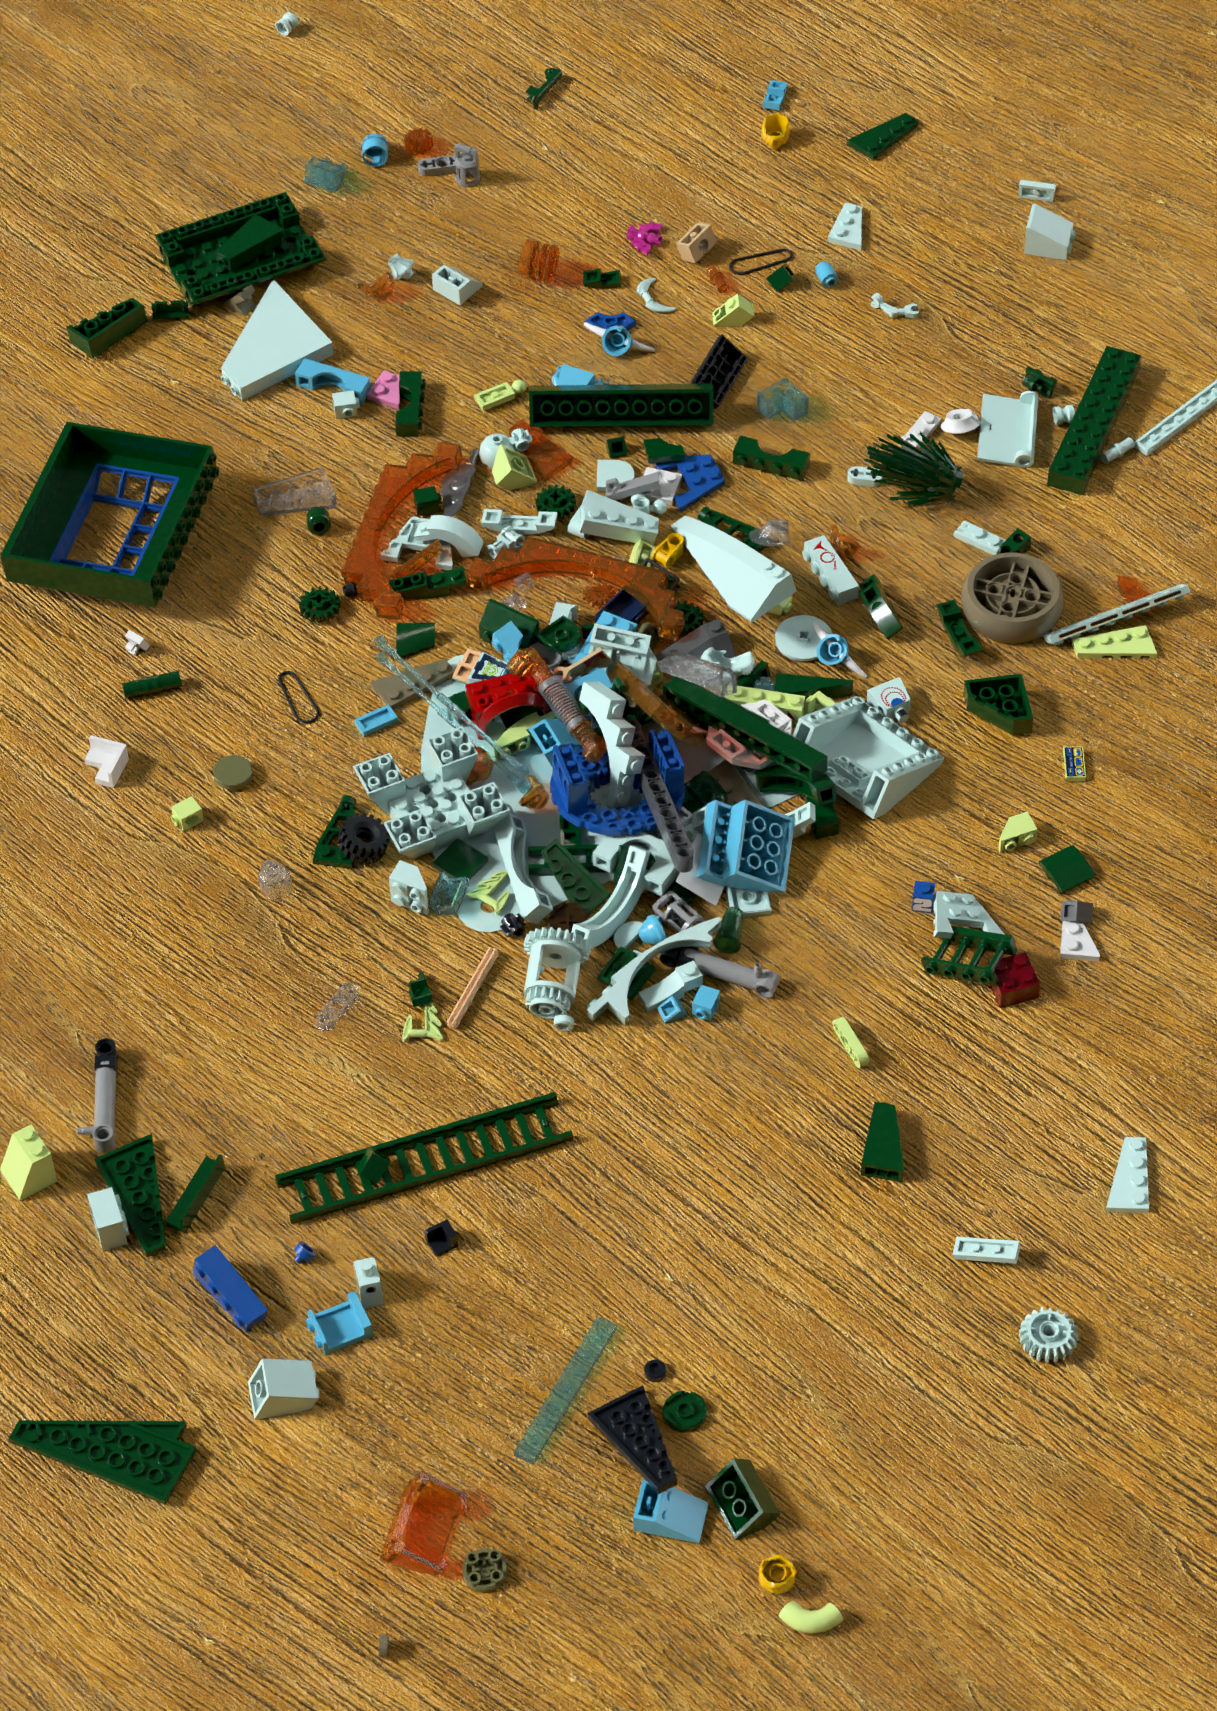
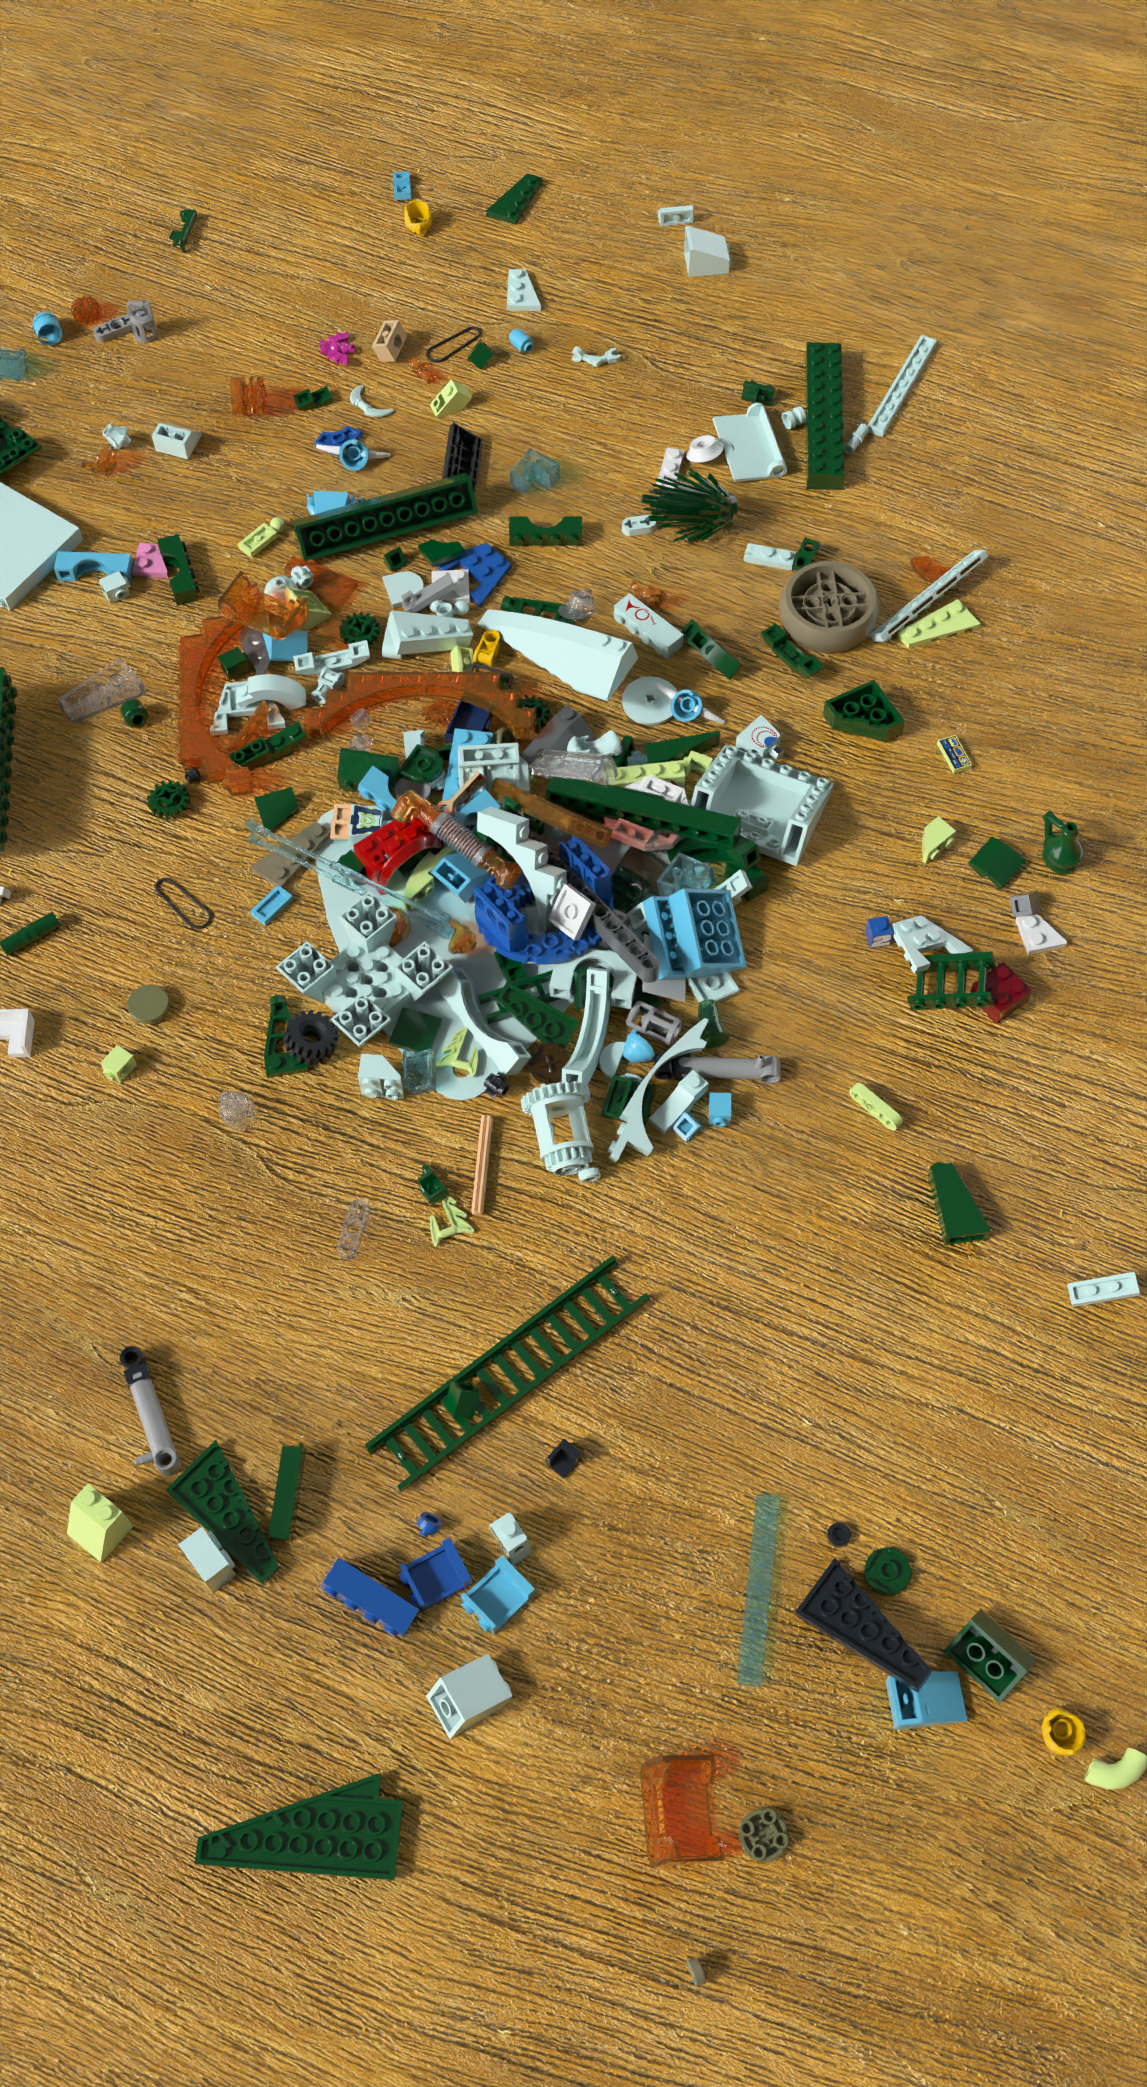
camera: 20 degrees left, 10 degrees up
(293, 1294) = (435, 1576): none -> blue panel
(466, 459) = (261, 611): none -> clear orange windscreen
(480, 496) = (285, 649): none -> medium azure slope
(636, 793) = (571, 911): none -> white plate
(760, 791) = (685, 873): none -> clear light blue brick
(1131, 870) = (1061, 849): none -> dark green piece

